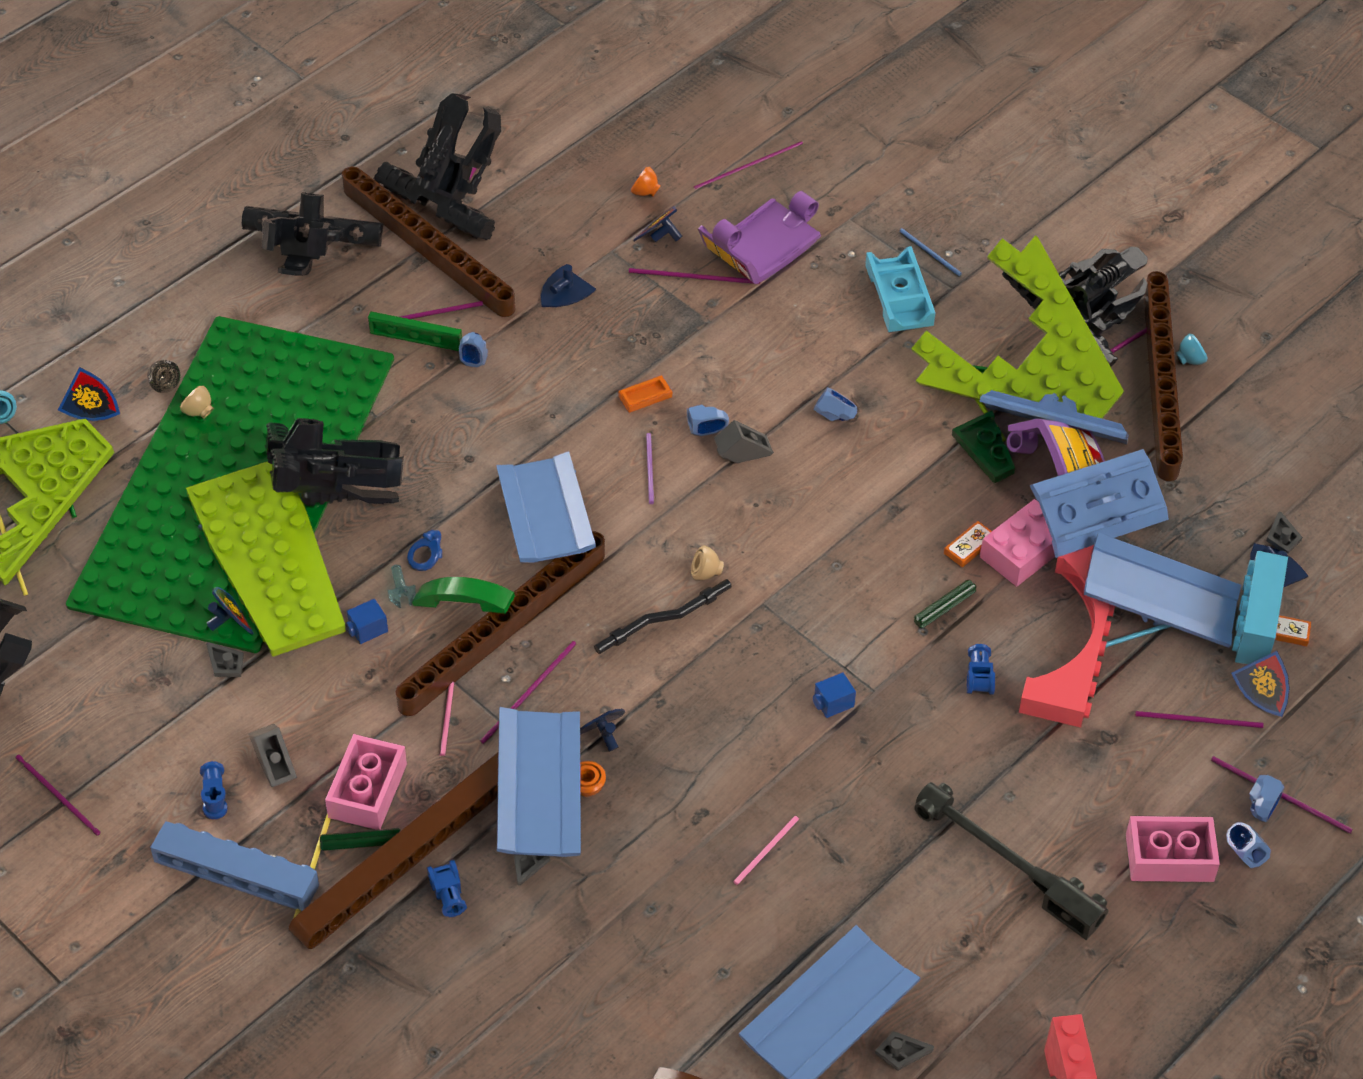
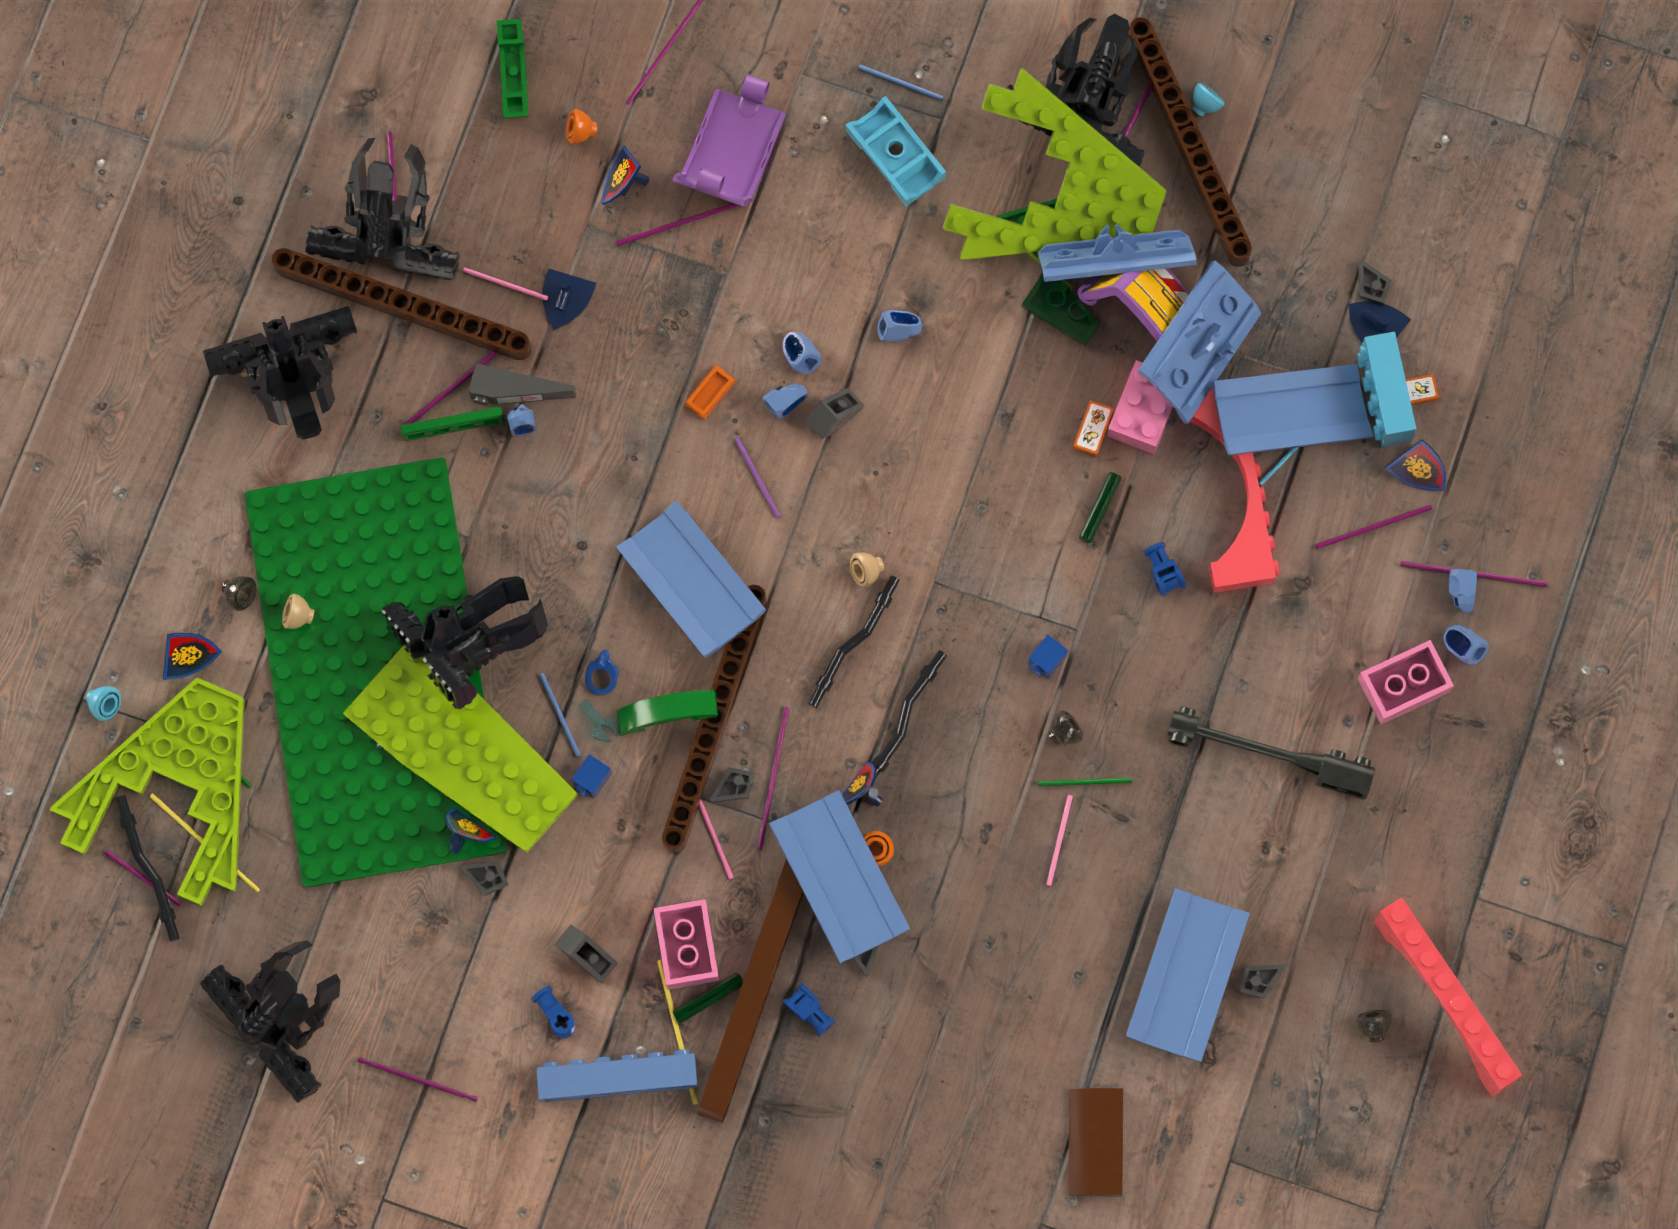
camera: 20 degrees left, 25 degrees up
(370, 567) = (559, 714): none -> medium blue axle
(489, 681) = (734, 786): none -> dark grey piece
(495, 332) = (505, 387): none -> dark grey slope
(522, 263) = (506, 284): none -> bright pink axle
(617, 129) = (513, 68): none -> green slope
(714, 668) = (927, 675): none -> black bar
(739, 393) = (801, 352): none -> medium blue rock
(816, 812) = (1084, 781): none -> green axle
(820, 758) = (1065, 729): none -> clear smoke brick

